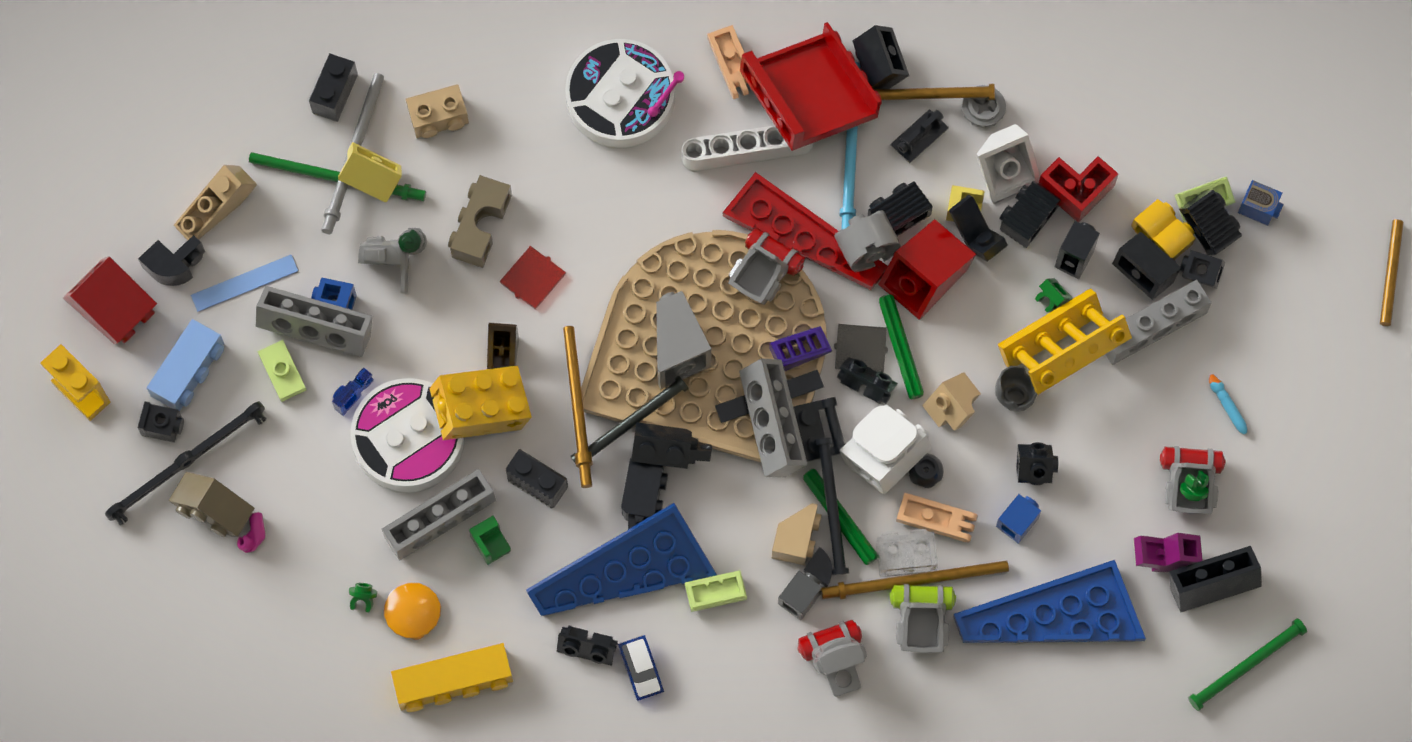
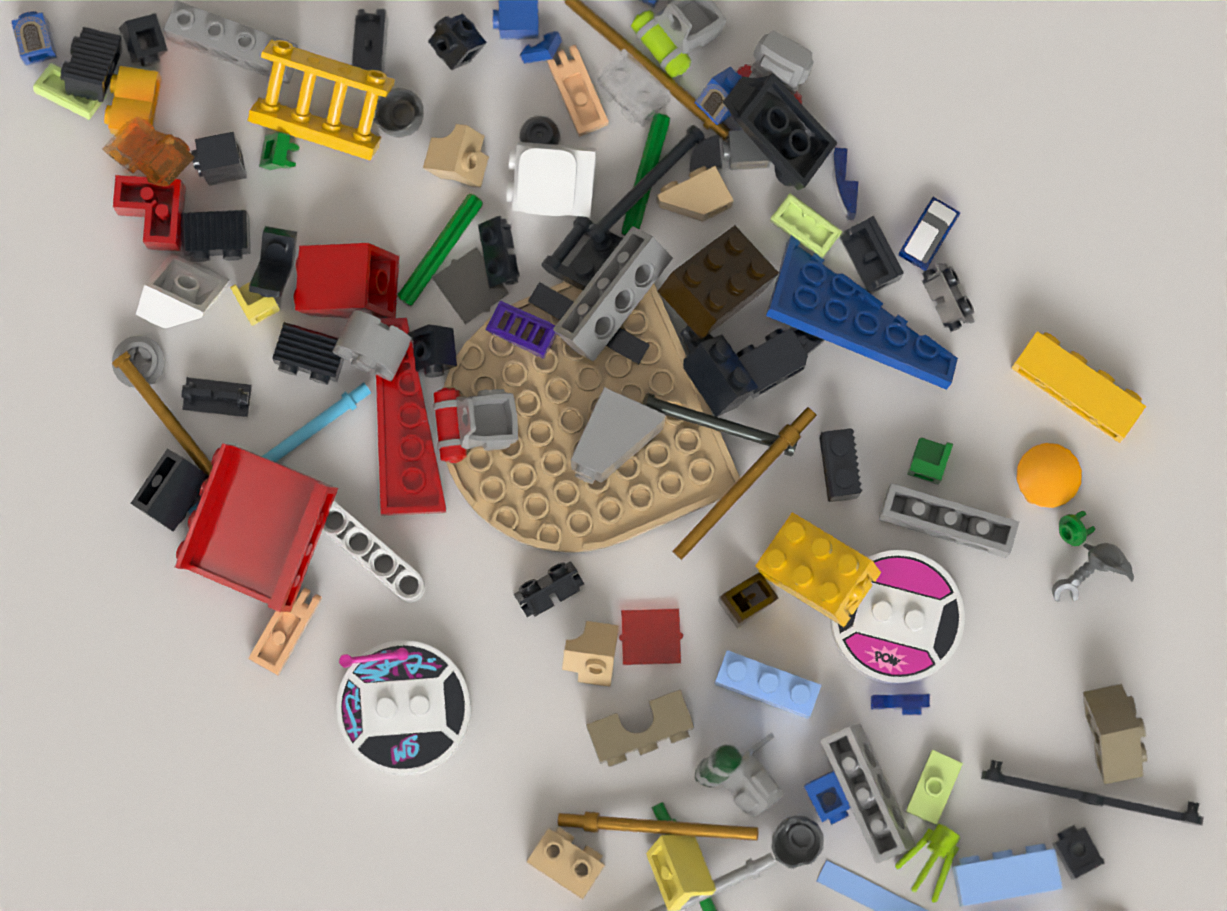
camera: 130 degrees left, 10 degrees up
(244, 345) = (941, 842): none -> lime plant
(255, 536) = (1104, 674): dark pink arm -> none
(324, 255) = (797, 841): none -> dark grey hair
(324, 593) = (1100, 557): none -> dark grey piece
(437, 318) = (767, 684): none -> light blue brick
(447, 149) = (593, 822): none -> pearl gold bar
(552, 228) = (592, 653): none -> tan brick
(620, 226) = (557, 580): none -> black hinge
(657, 618) = (871, 255): none -> black hinge
(715, 635) = (846, 190): none -> clear blue slope
(723, 492) = (717, 282): none -> dark brown brick
(794, 616) = (780, 128): none -> black slope
(834, 284) = (433, 349): none -> black brick
(850, 605) = (715, 92): none -> brick
(983, 518) = (542, 51): none -> blue tile
(1079, 410) = (370, 40): none -> black hinge
(1115, 202) = (153, 153): none -> clear orange brick
(1146, 265) = (182, 88): black brick -> none

